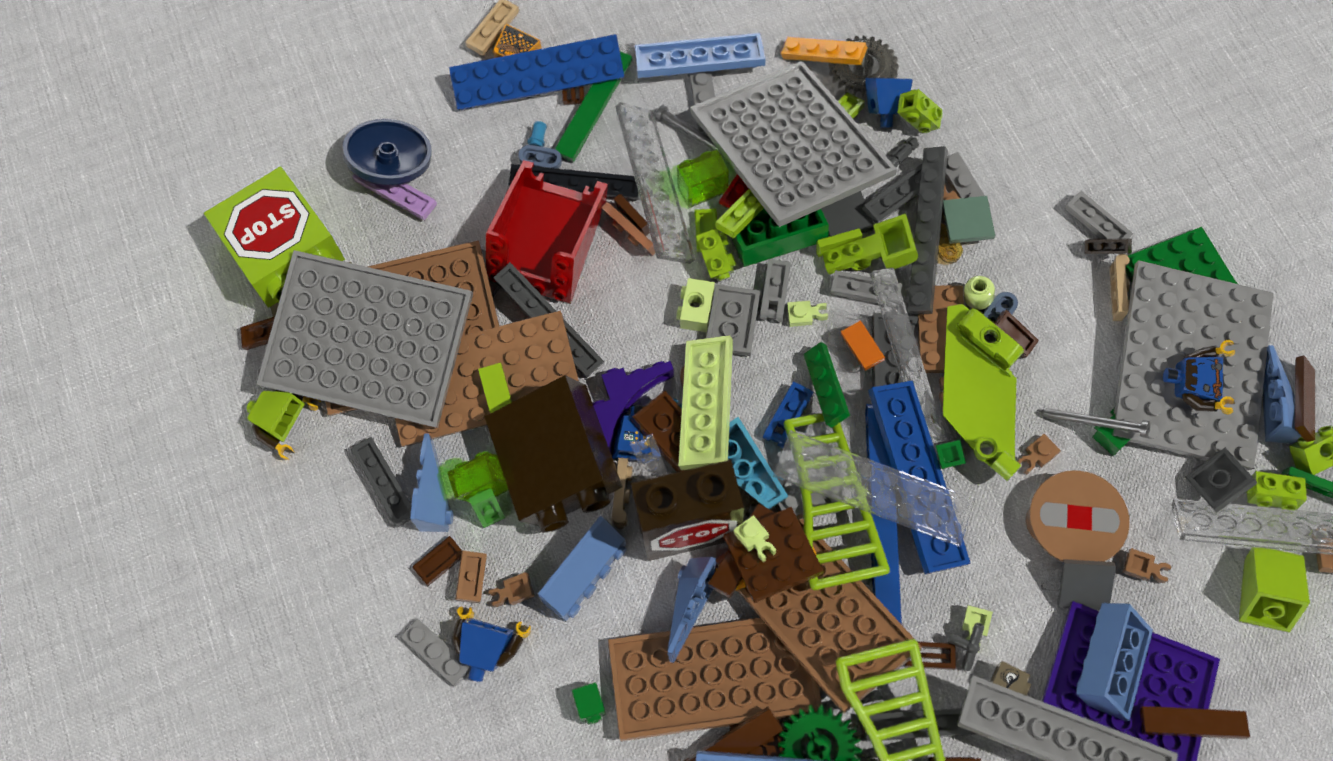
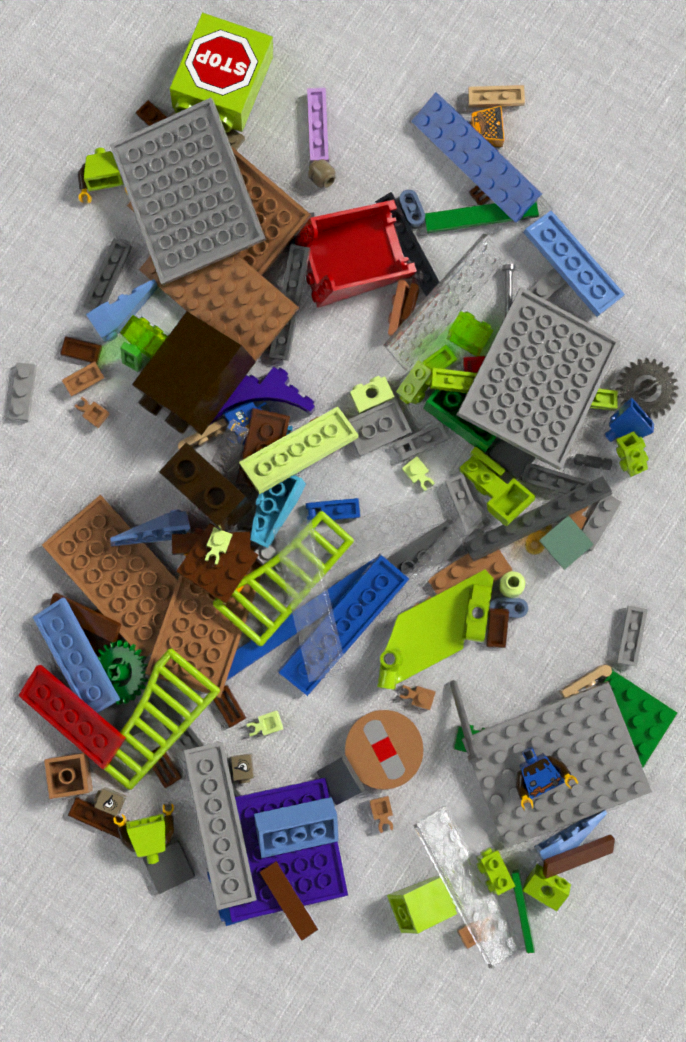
camera: 55 degrees right, 15 degrees up
(387, 151) = (340, 98): dark blue dish -> none
(443, 214) = (321, 173): none -> dark tan head
(484, 644) = (45, 419): blue torso -> none
(495, 386) = (214, 303): lime tile -> none
(538, 133) = (429, 193): dark azure pin -> none
(583, 569) = (132, 447): medium blue slope -> none
(589, 703) = (53, 510): green brick -> none
(824, 50) = (638, 352): light orange plate -> none
(826, 385) = (367, 522): green plate -> none
(862, 345) = (415, 528): orange tile -> none
(951, 454) = (374, 637): green brick -> none
(971, 646) = (249, 729): dark grey piece -> none
(1108, 246) = (611, 654): dark brown piece -> none
(1221, 480) = (476, 830): dark grey tile -> none

